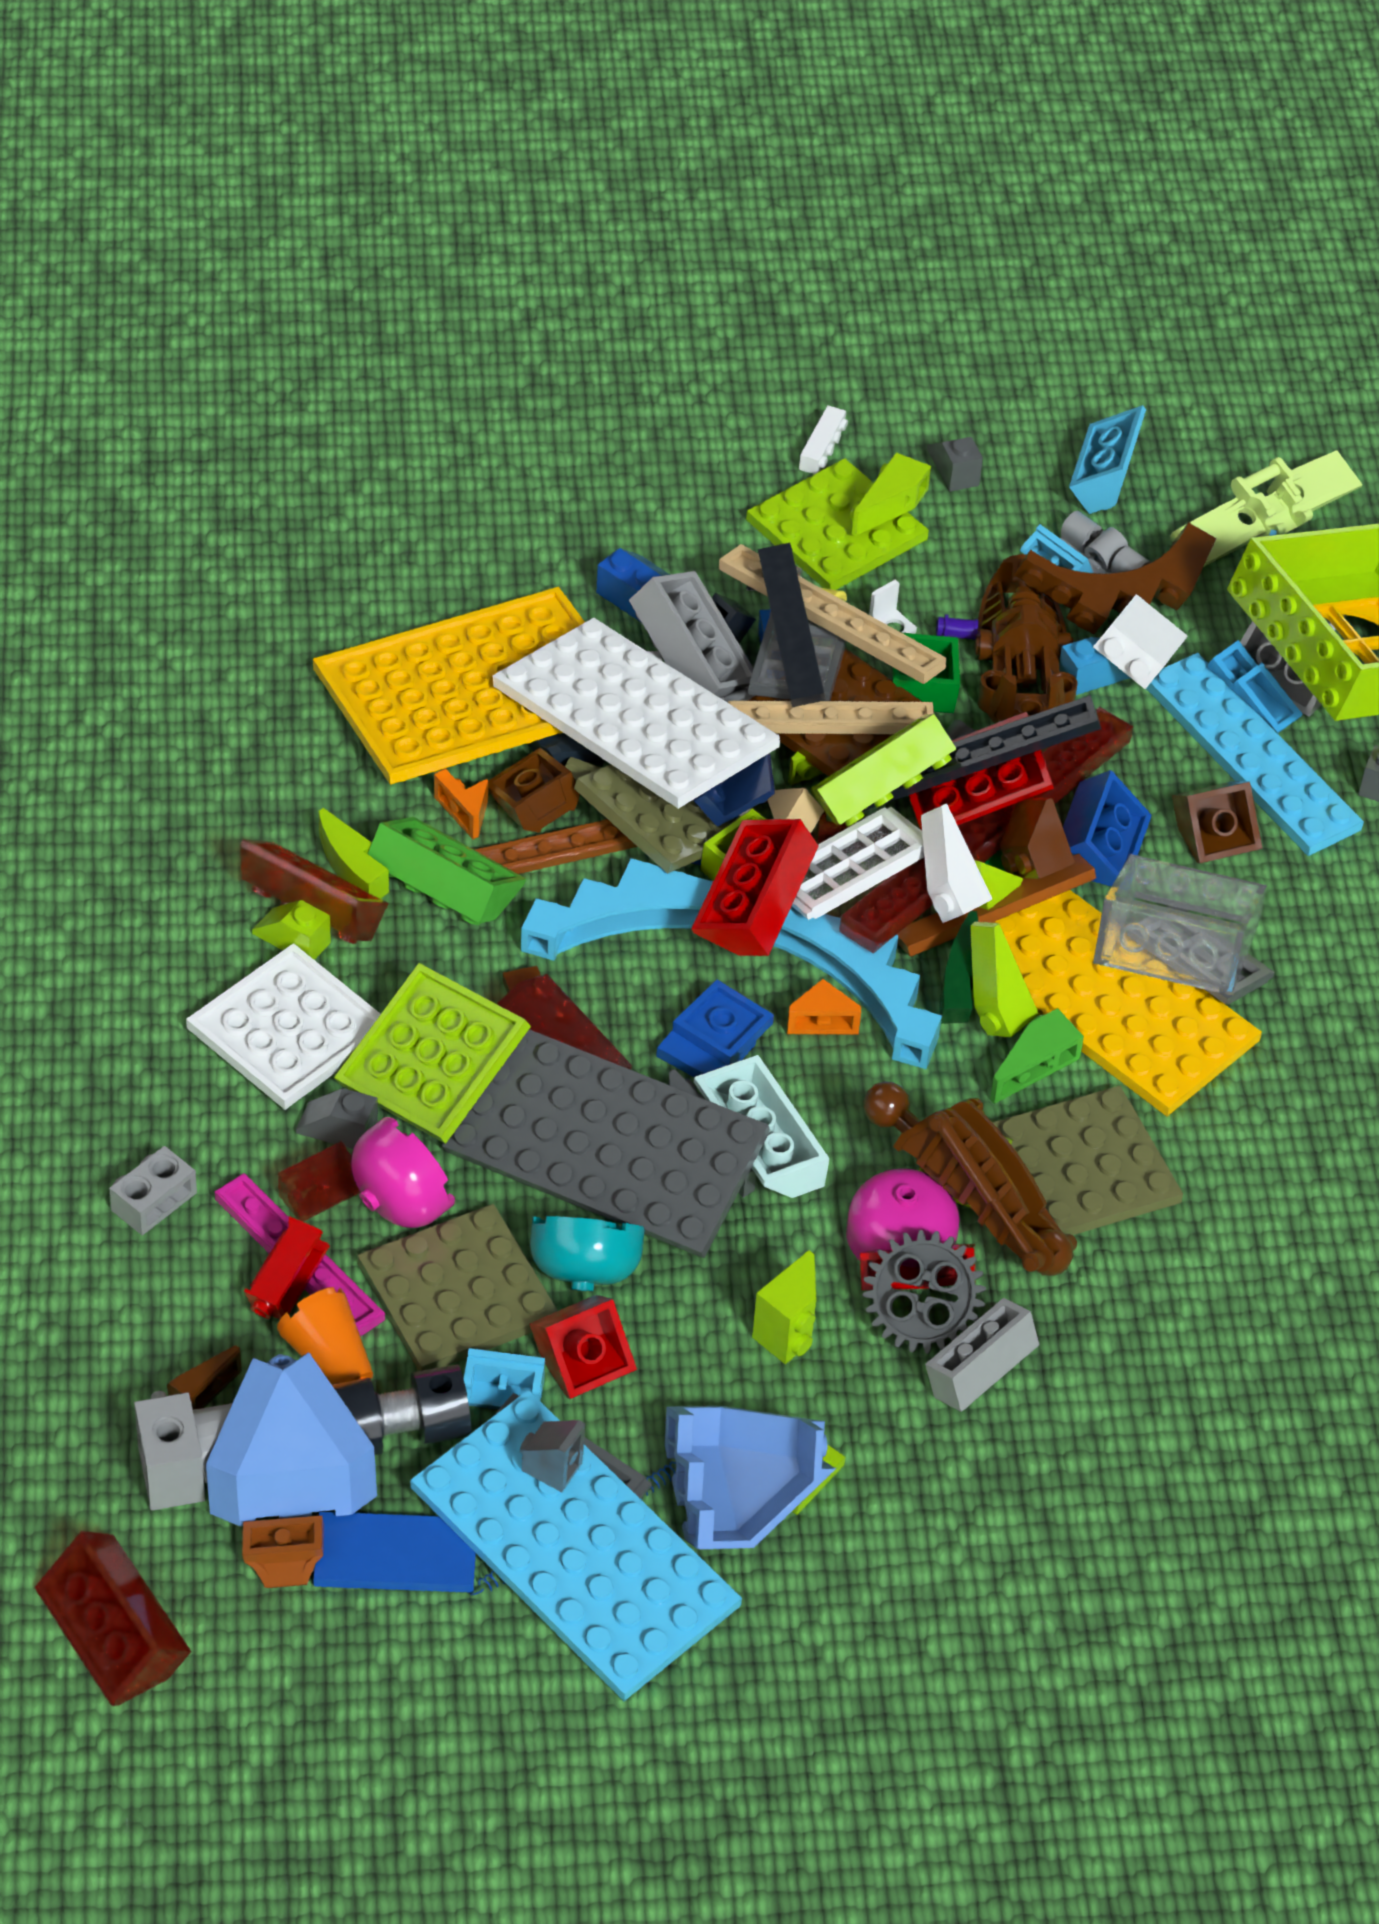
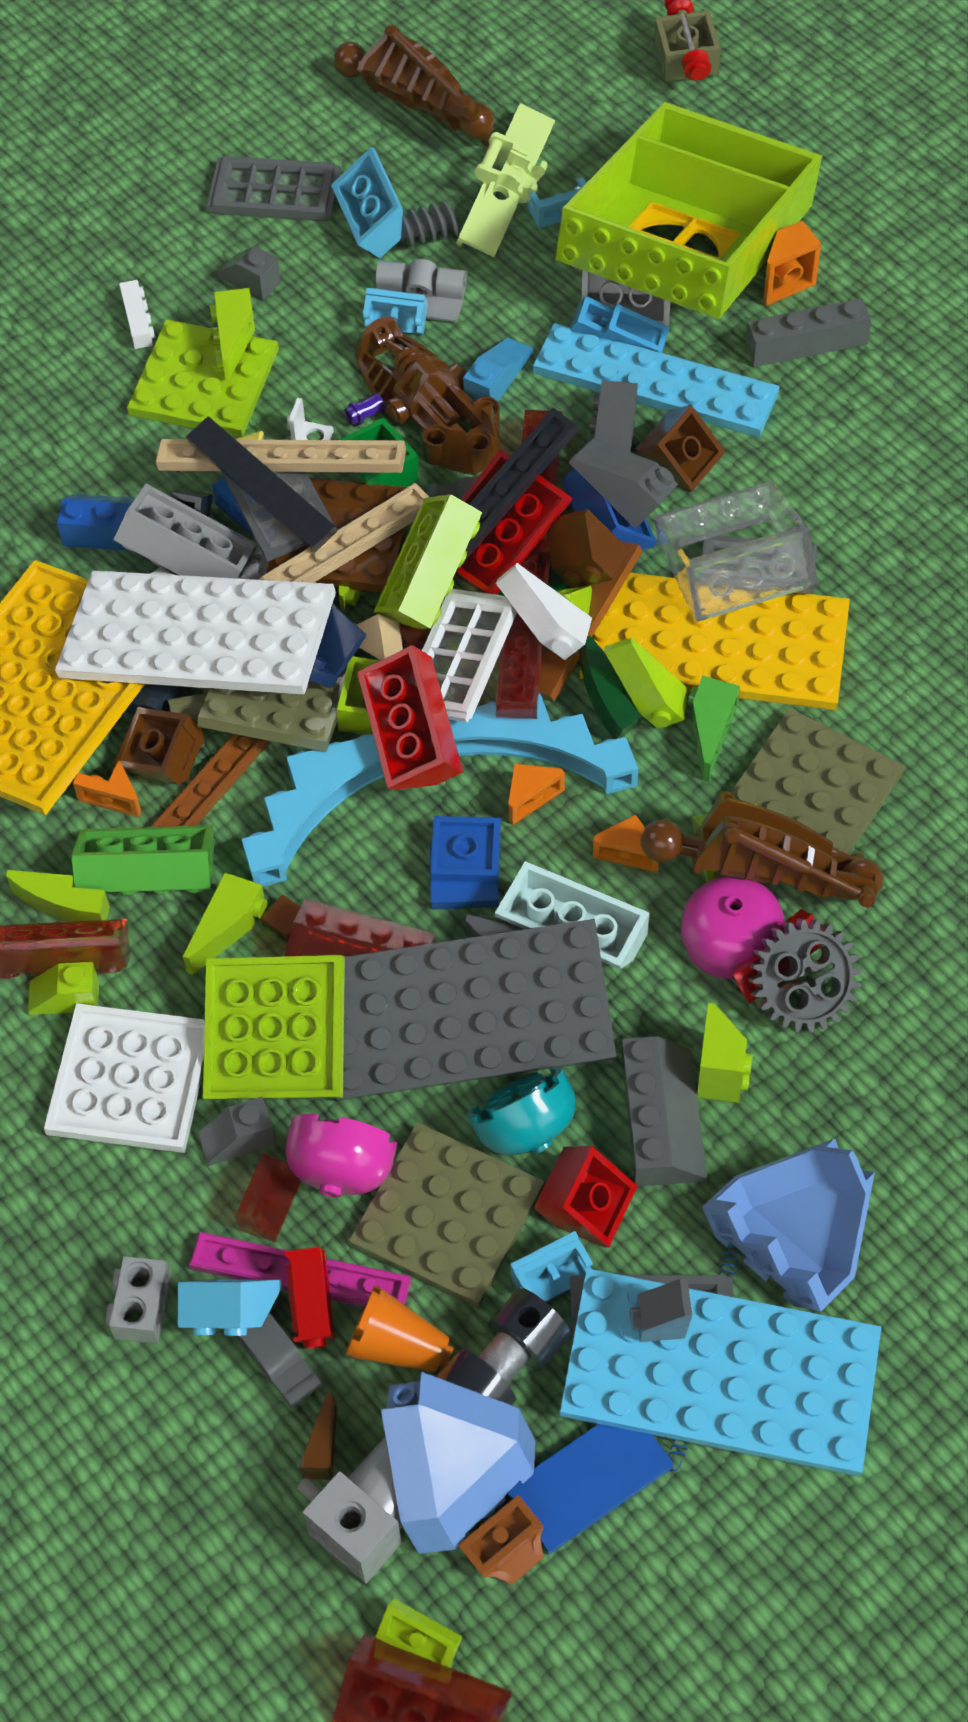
camera: 30 degrees left, 10 degrees up
(156, 1564) = (418, 1634): none -> lime plate
(212, 1226) = (225, 1304): none -> medium azure slope
(223, 1298) = (280, 1361): none -> dark grey piece
(473, 954) = (226, 920): none -> lime slope
(703, 1325) = (662, 1112): none -> dark grey slope
(850, 1096) = (622, 845): none -> orange slope
(982, 1354) = (883, 997): light grey brick -> none
(1038, 401) = (273, 188): none -> dark grey piece
(1095, 594) = (455, 323): reddish brown arch -> none
(1130, 809) = (624, 479): none -> dark grey slope
(1140, 641) = (516, 339): white brick -> none
(1151, 504) = (428, 223): none -> dark grey piece
(1173, 766) = (615, 415): none -> dark grey brick
(1248, 376) = (416, 80): none -> reddish brown piece

